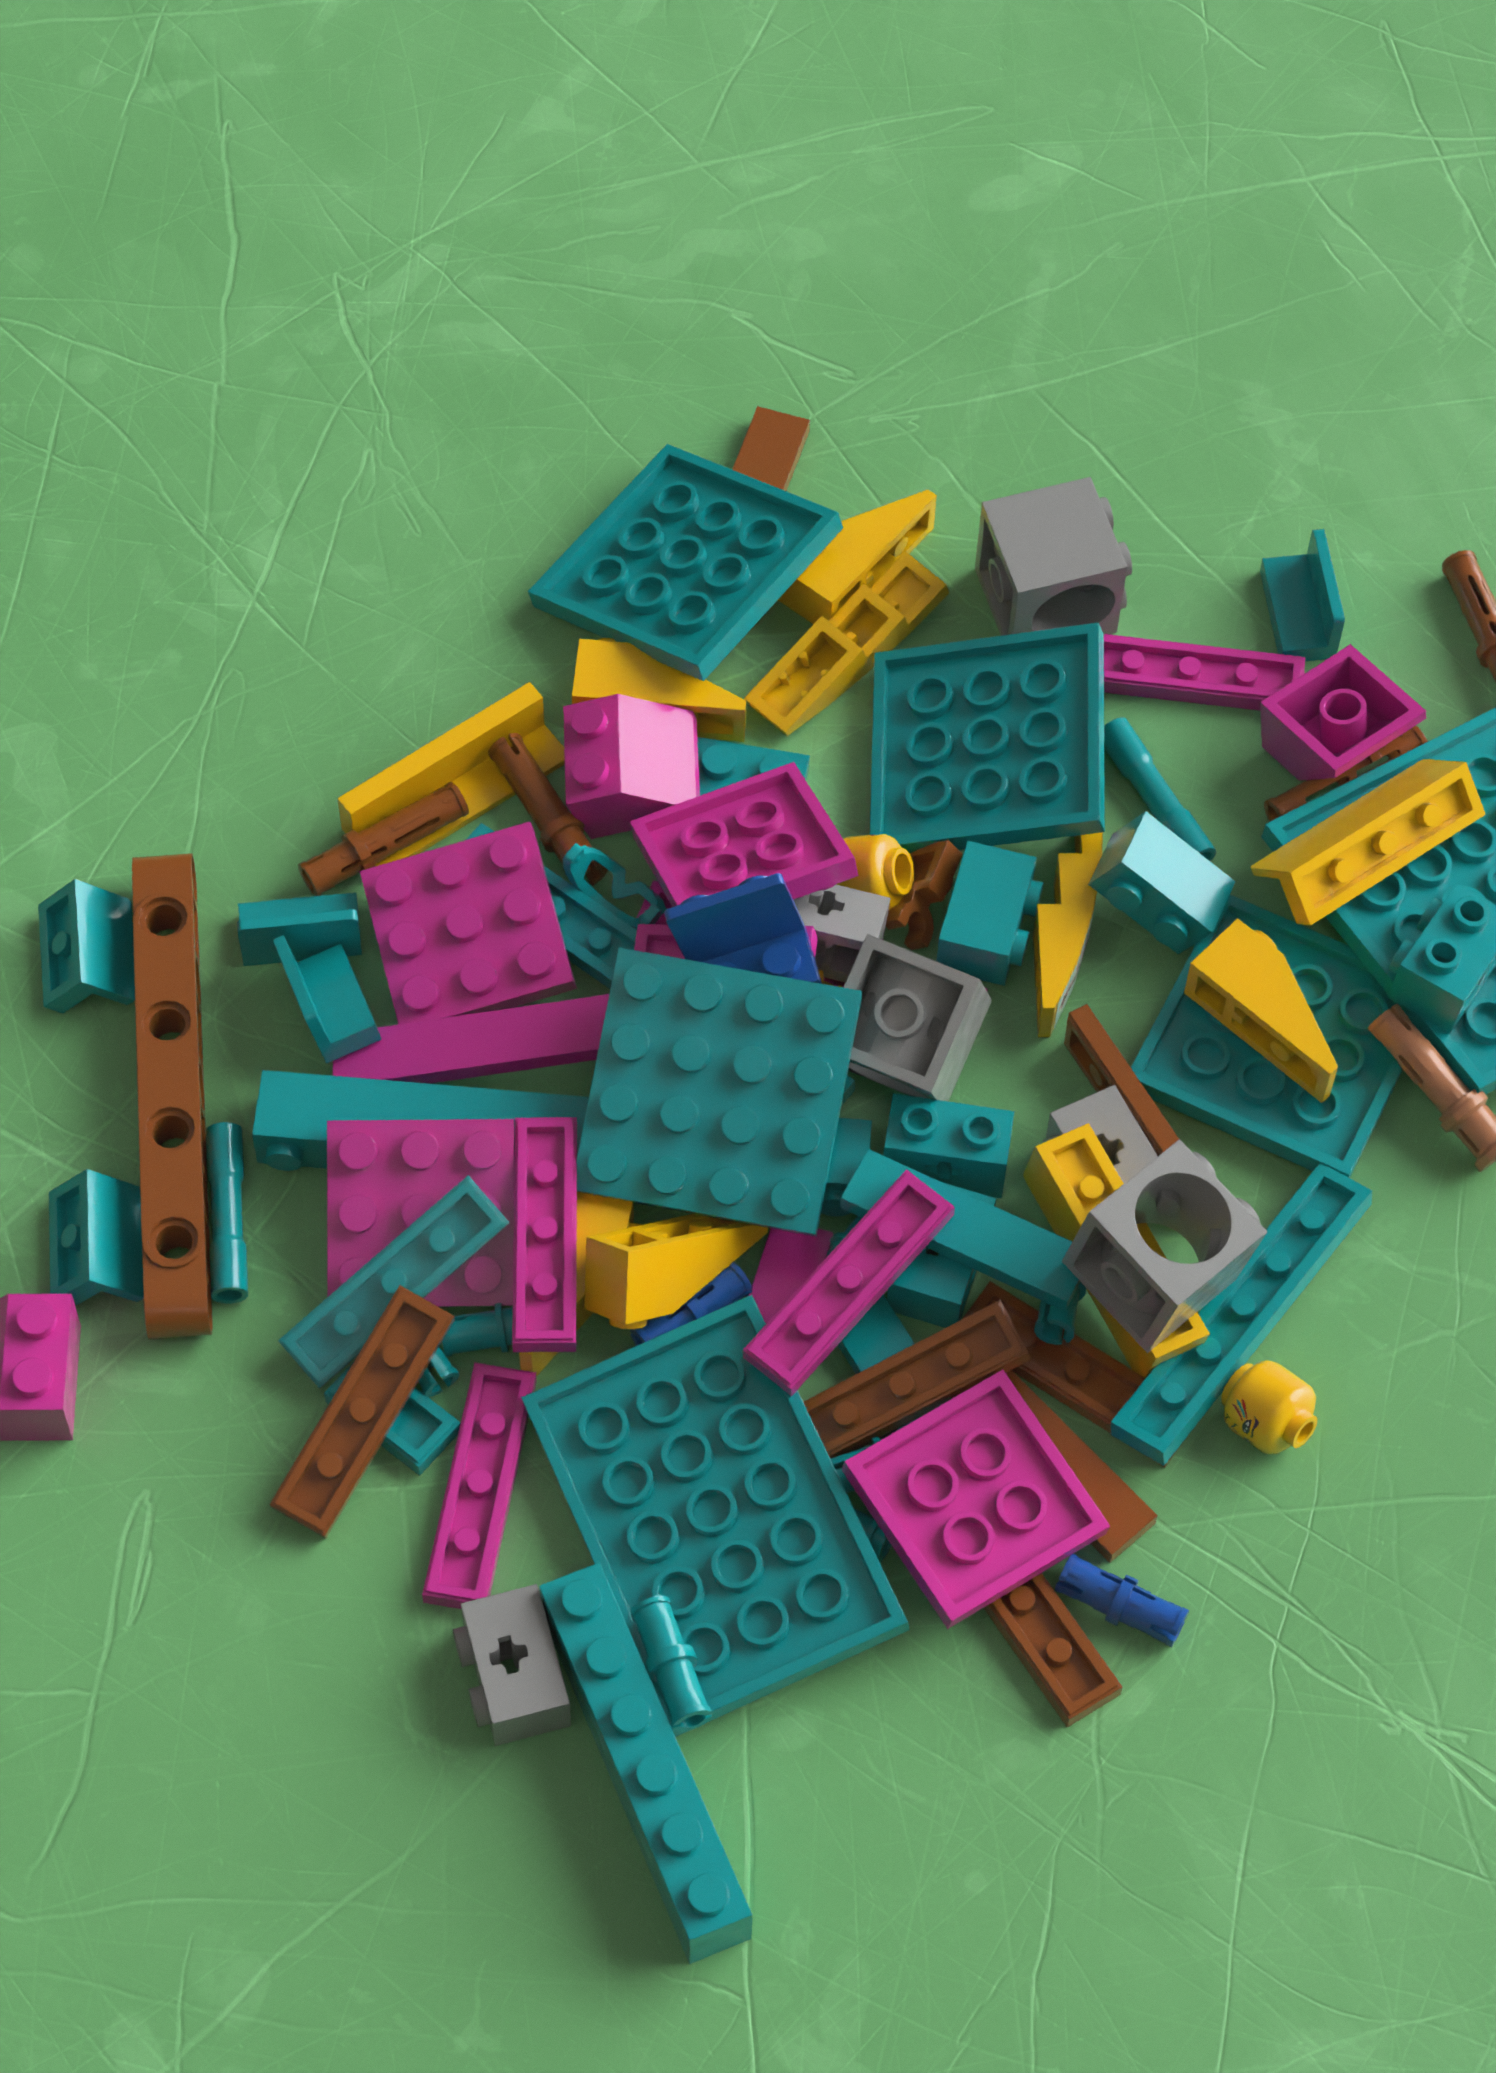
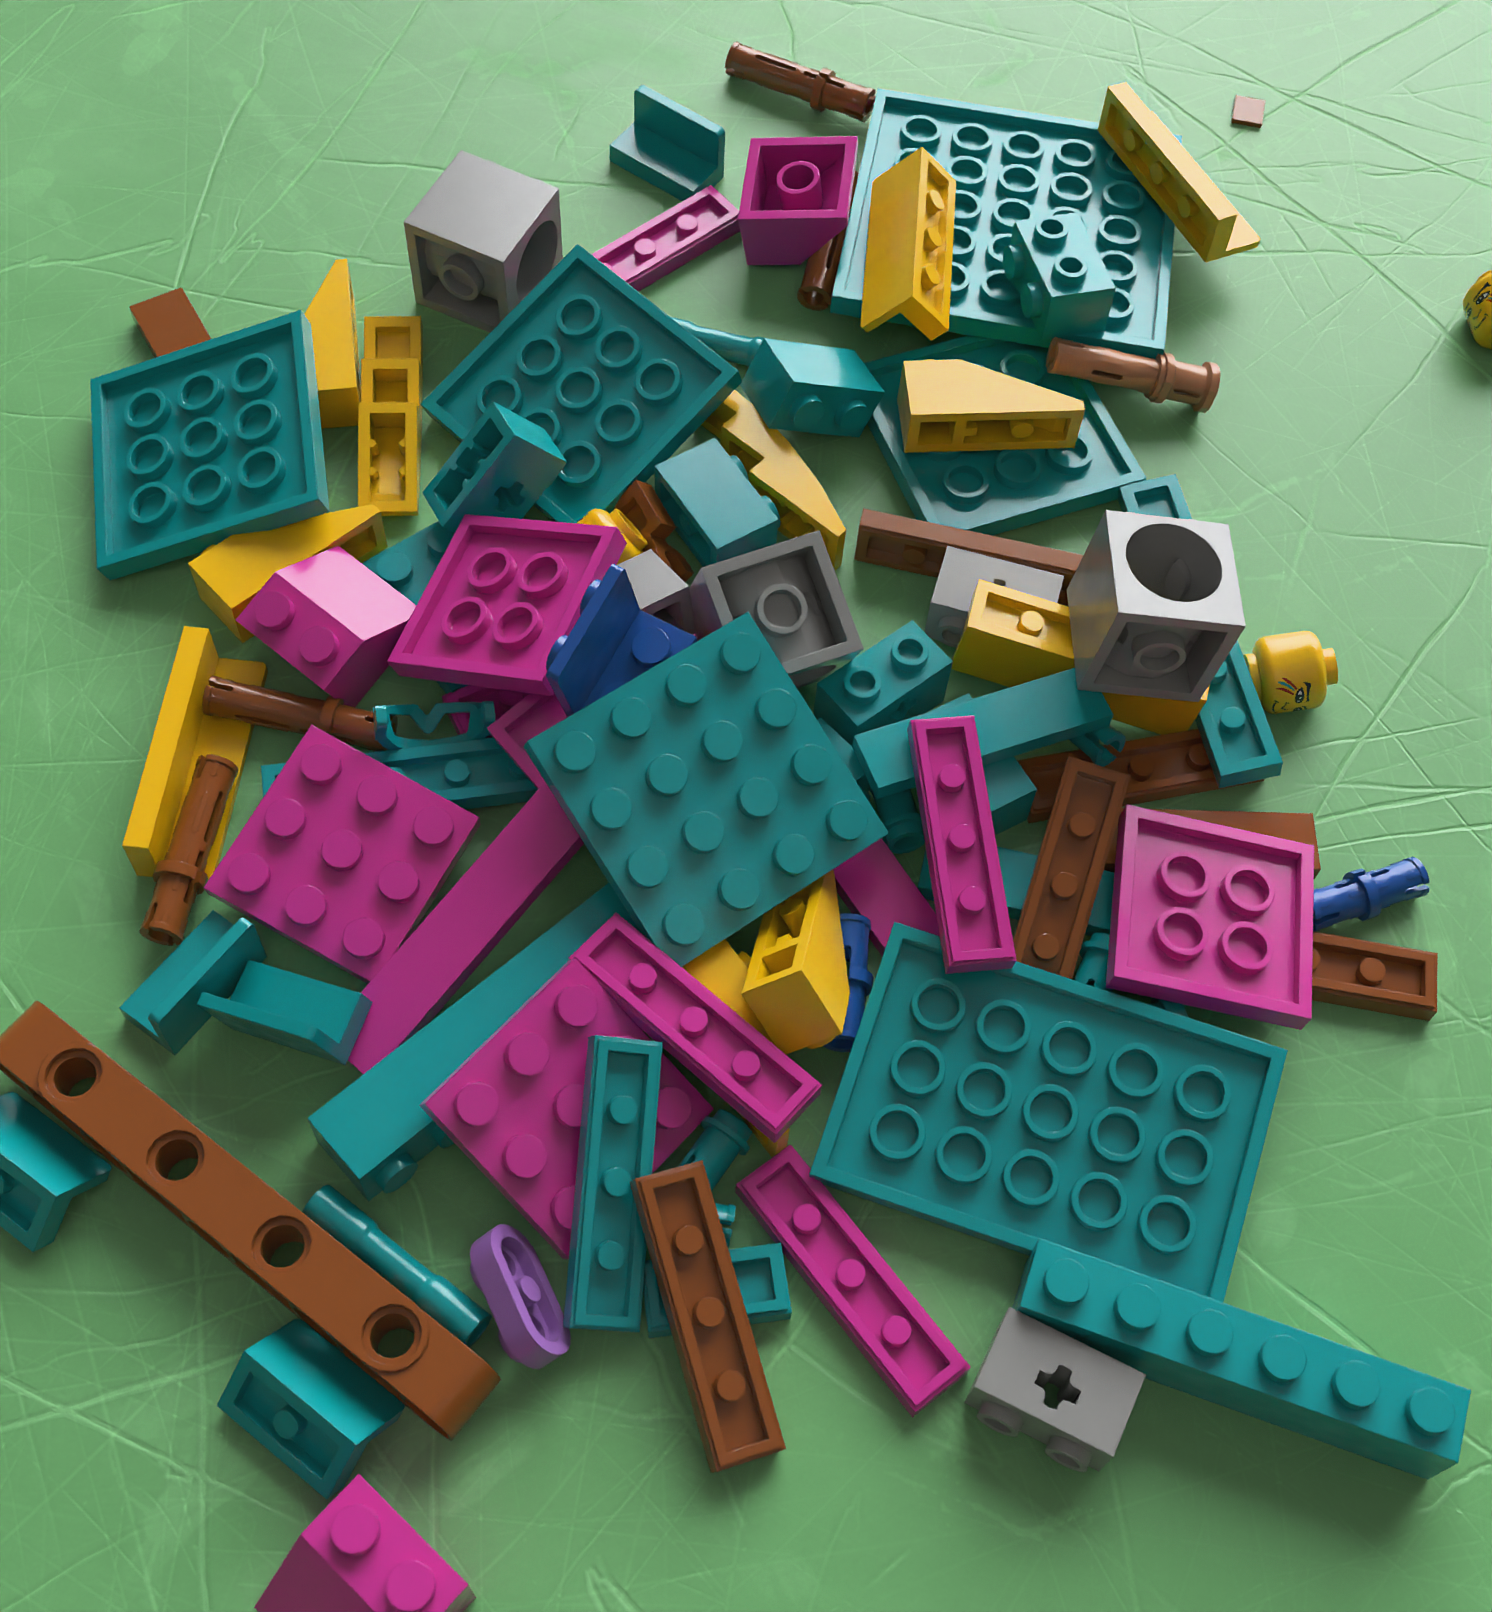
camera: 50 degrees left, 0 degrees up
(273, 1296) = (519, 1297): none -> medium lavender plate
(671, 1663) = (1176, 1260): teal pin -> none
(849, 750) = (495, 470): none -> teal brick

